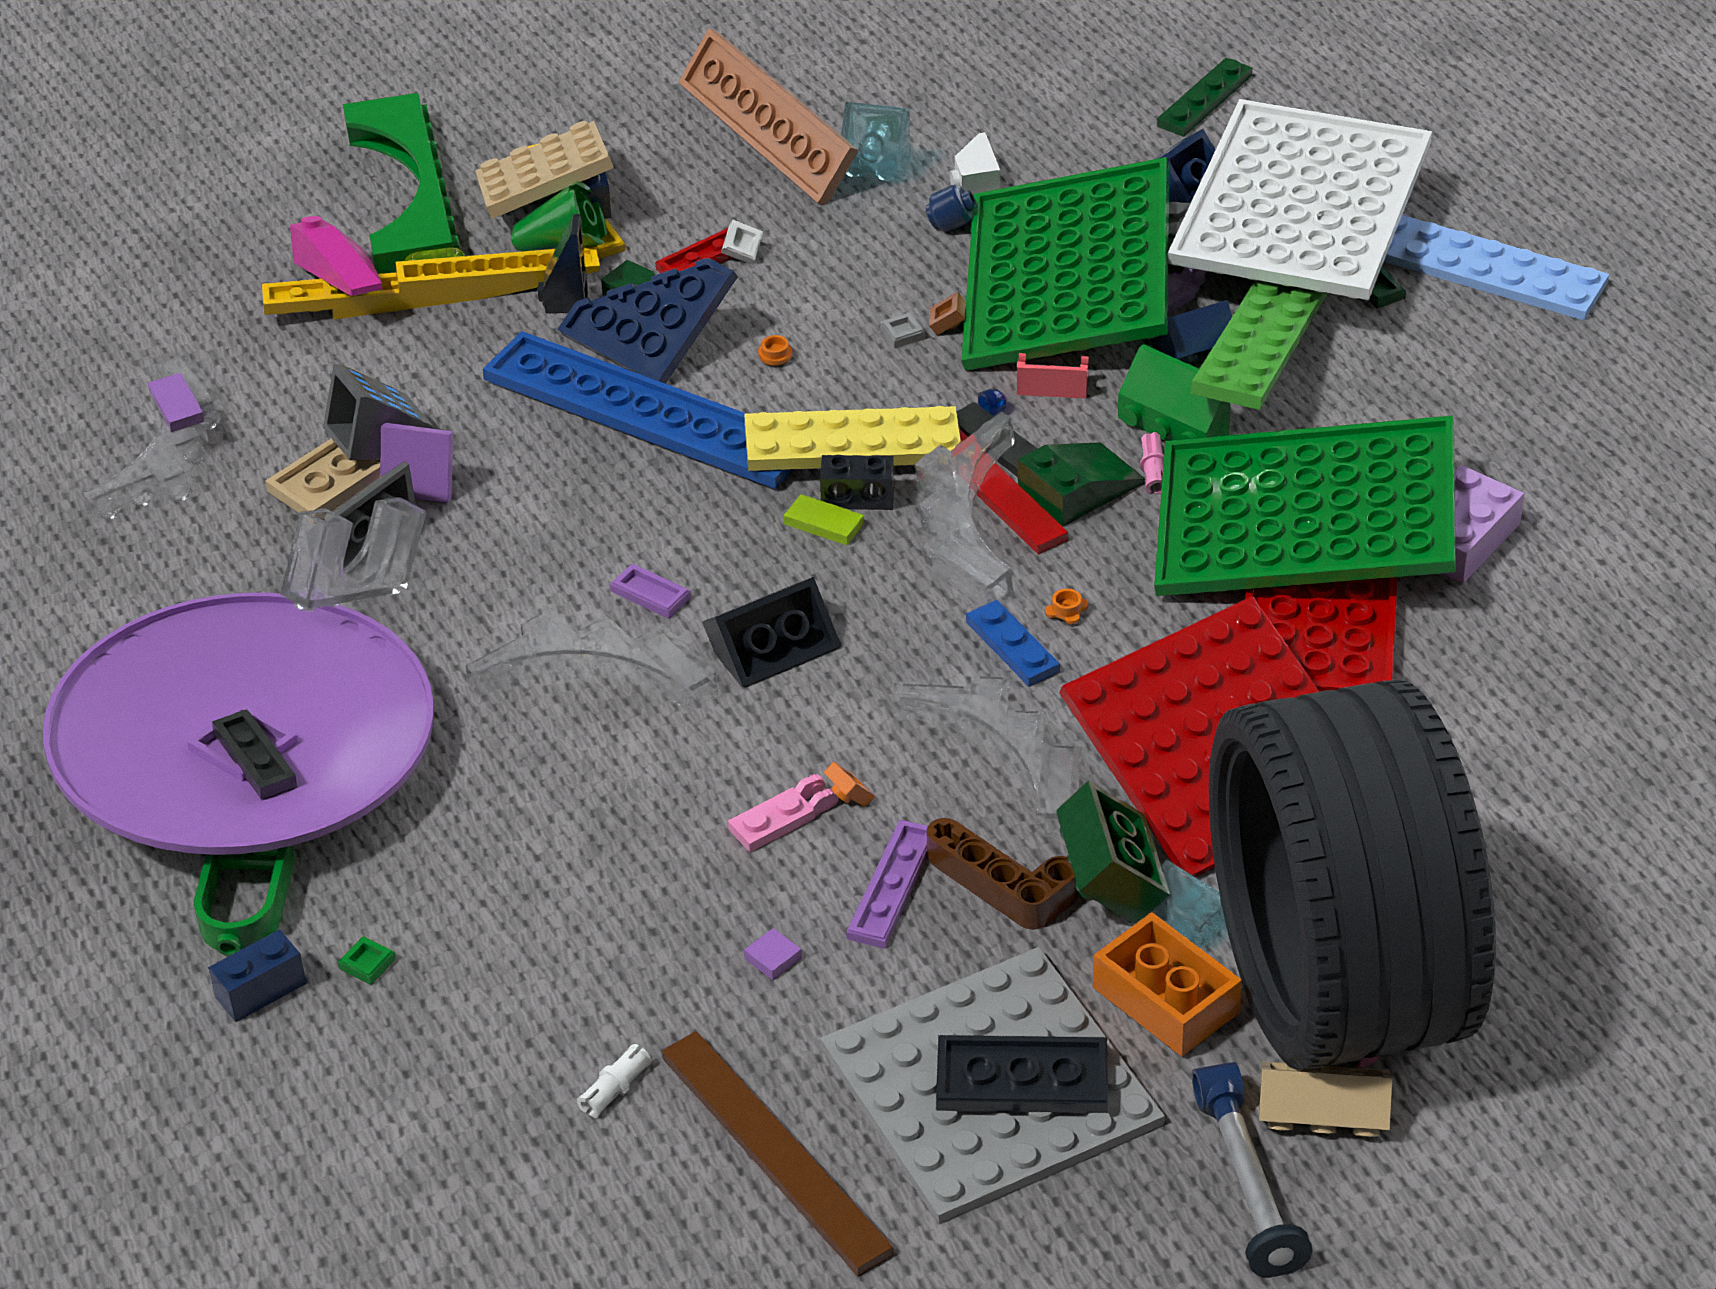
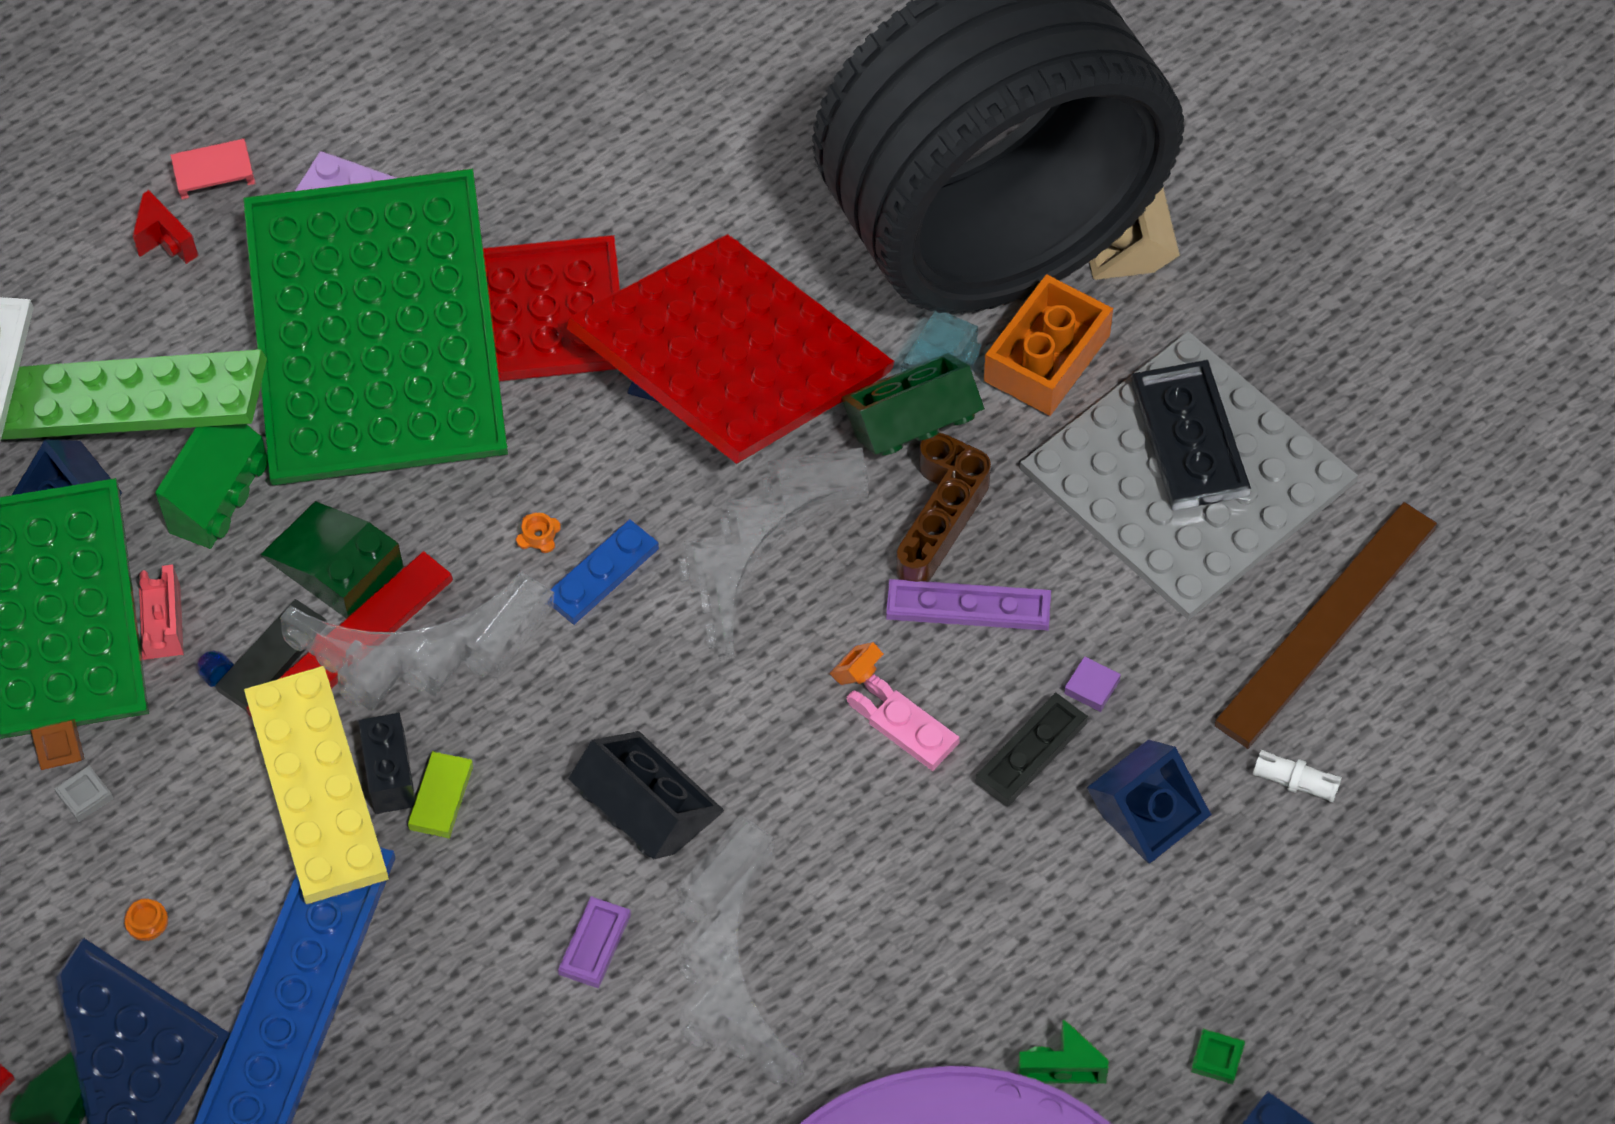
camera: 105 degrees left, 15 degrees up
(406, 848) = (1075, 1063): none -> green slope
(629, 958) = (1150, 799): none -> dark blue slope
(717, 891) = (1031, 749): none -> pearl dark grey plate
(1152, 462) = (294, 492): bright pink axle -> none
(1278, 1246) = (1153, 292): piece -> none
(1471, 403) = (159, 226): none -> red slope
(1532, 442) = (212, 166): none -> coral hinge

